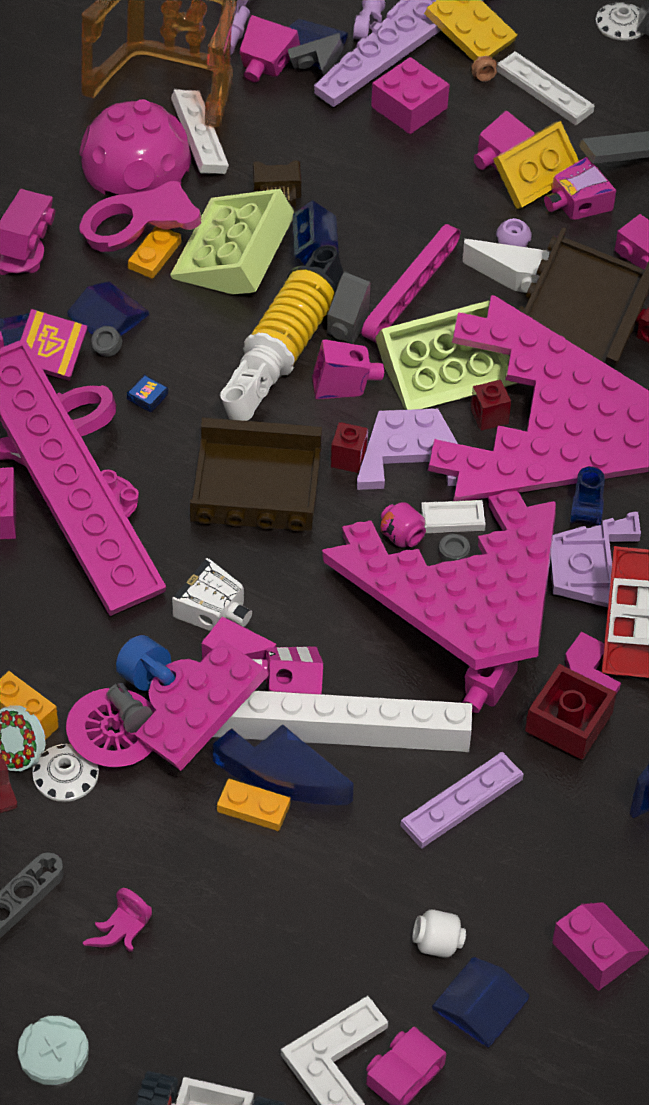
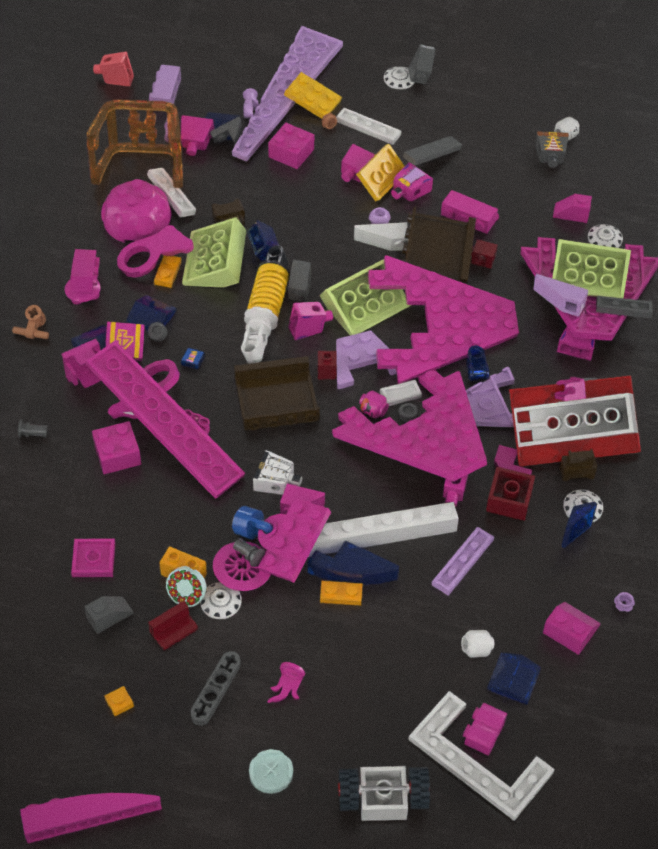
camera: 15 degrees left, 0 degrees up
(300, 672) = (343, 505): dark pink torso -> none
(411, 281) = (329, 258): dark pink beam -> none
(490, 405) = (401, 321): dark red brick -> none

